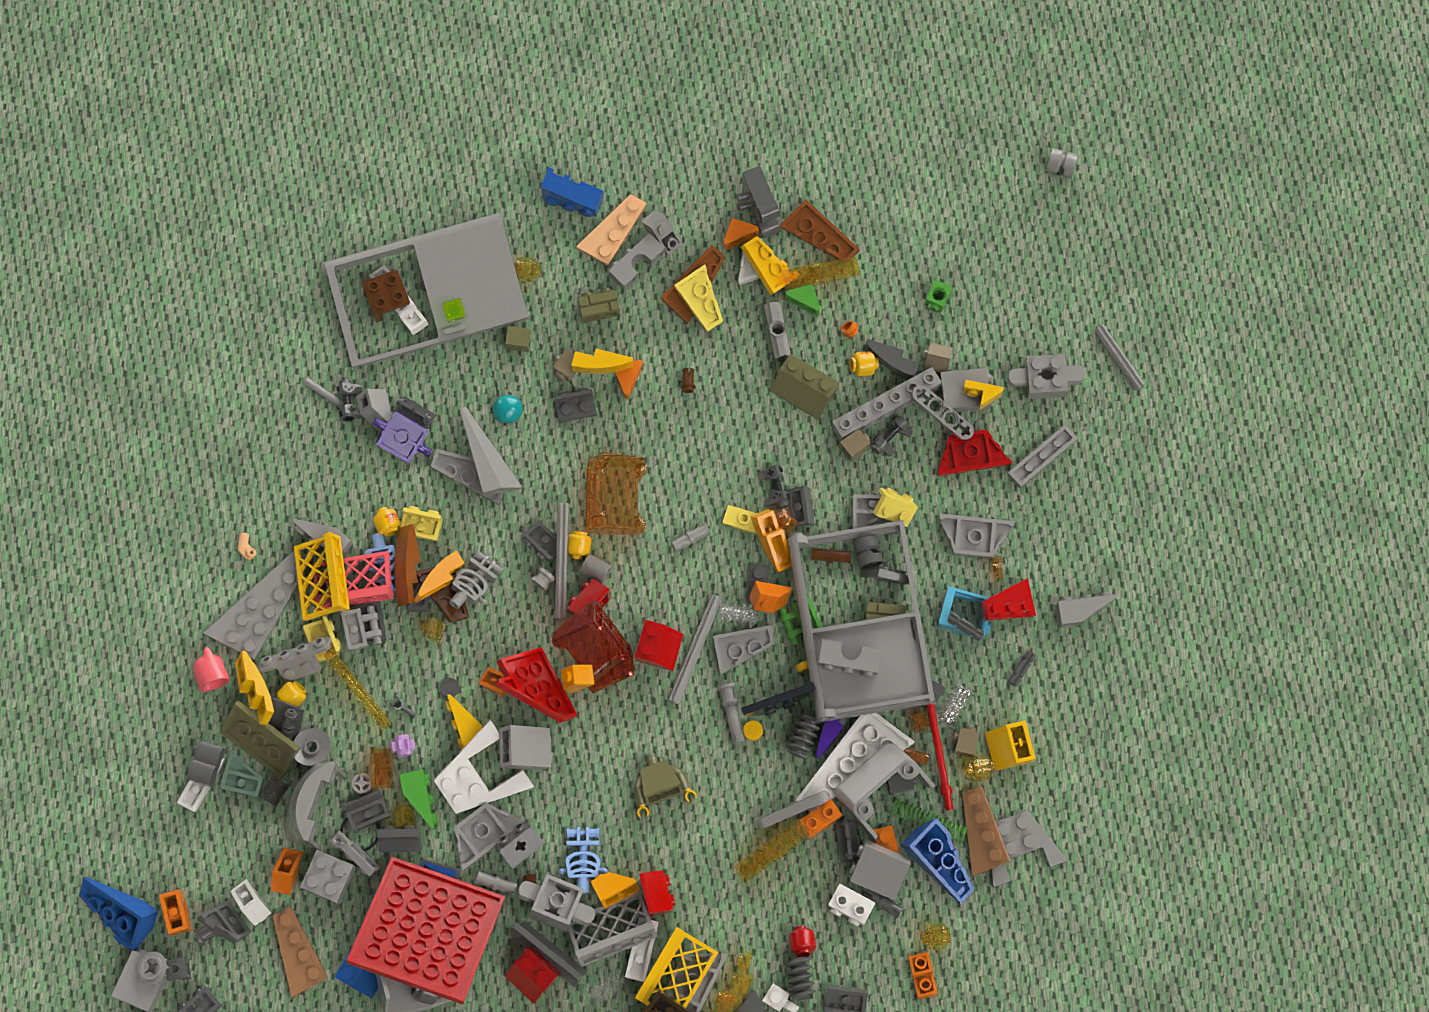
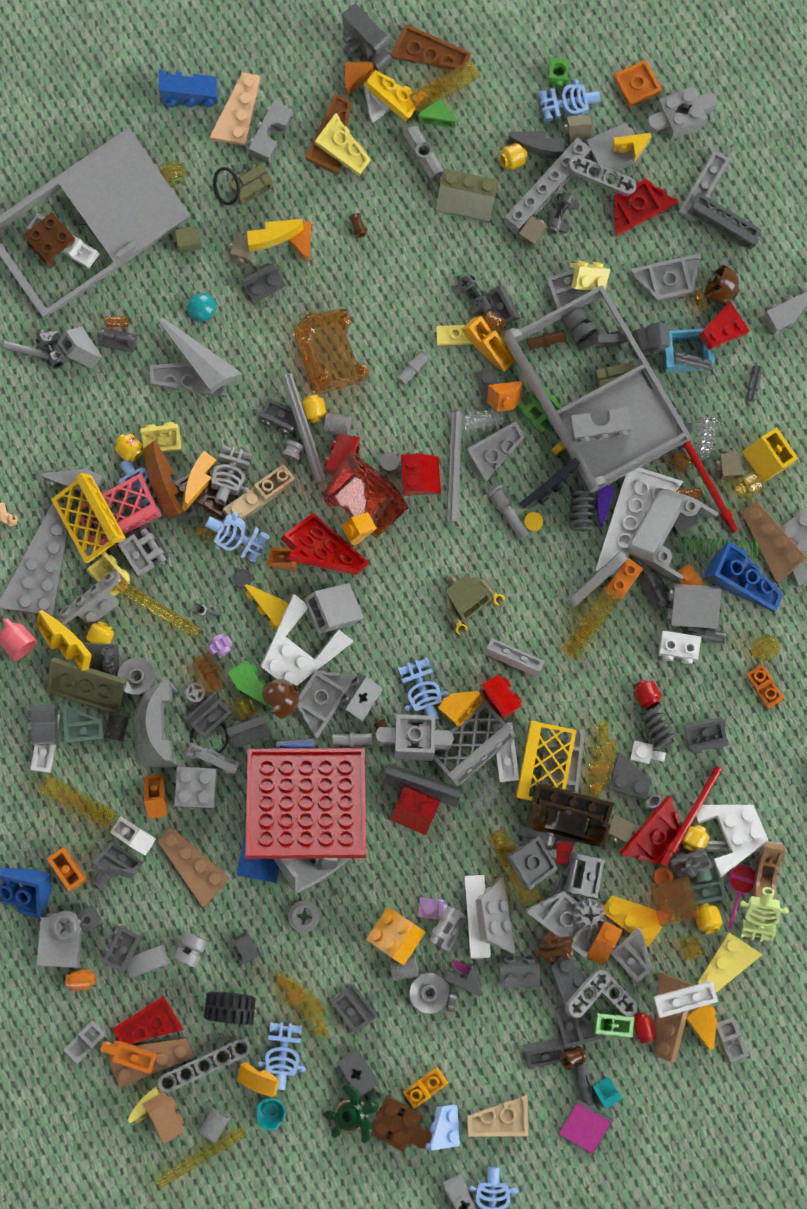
camera: 20 degrees left, 5 degrees up
(210, 849) = (78, 801): none -> clear yellow slope
(402, 437) = (114, 365): plate -> none
(421, 395) = (117, 321): none -> clear orange pin
(442, 817) = (282, 697): none -> reddish brown cylinder
(454, 310) = (119, 231): clear neon green plate -> none
(470, 657) = (251, 544): none -> light blue torso
(495, 611) = (261, 493): none -> tan slope
(583, 303) = (237, 185): none -> black piece
(634, 622) = (389, 462): none -> light grey tile
(662, 231) = (280, 92): light grey slope -> none
(684, 858) = (514, 657): none -> light grey plate
(849, 329) = (488, 129): orange plate -> none
(933, 590) = (652, 338): none -> dark grey brick
(957, 331) = (582, 101): none -> light blue torso
(1013, 332) = (637, 83): none -> orange plate
(1024, 561) = (724, 285): none -> reddish brown cylinder
(1046, 501) = (722, 223): none -> dark grey fence
(1119, 357) = (740, 74): light grey axle -> none

